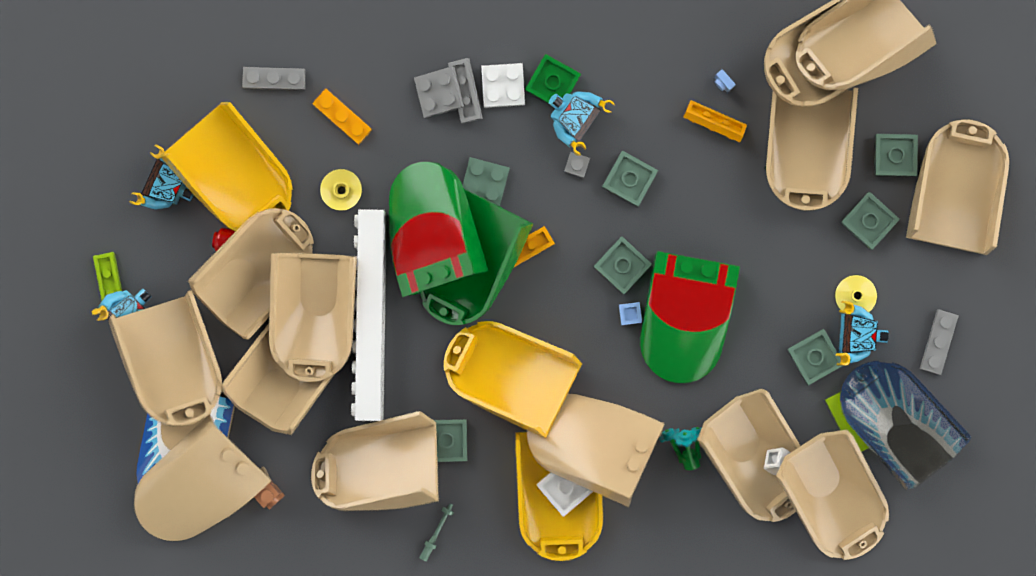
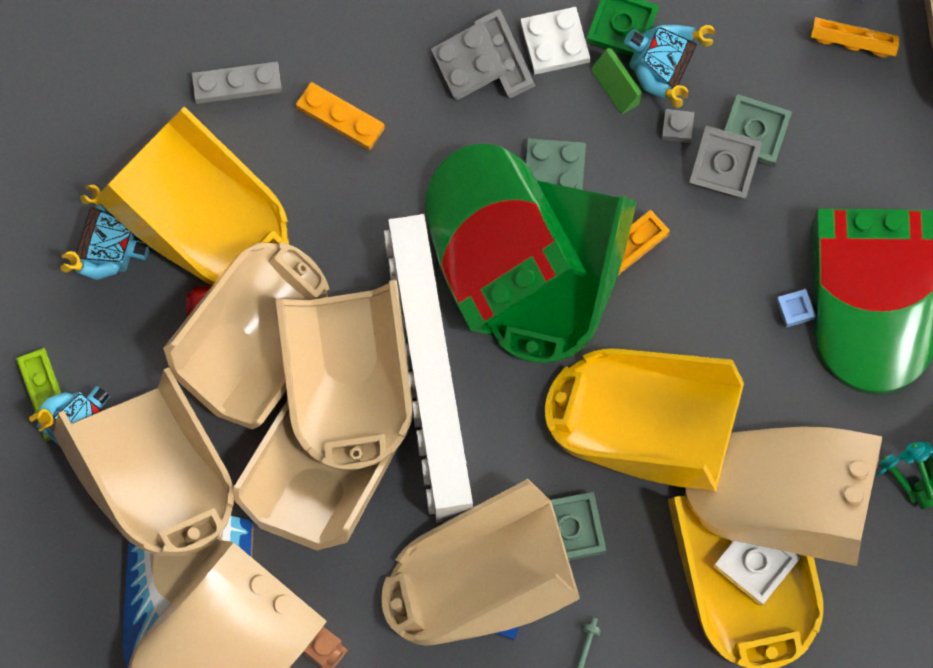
camera: 15 degrees left, 15 degrees down
(335, 180) = (352, 197): light yellow dish -> none
(539, 125) = (616, 81): none -> bright green slope
(603, 200) = (725, 162): none -> light grey plate
(622, 265) = (770, 245): sand green plate -> none

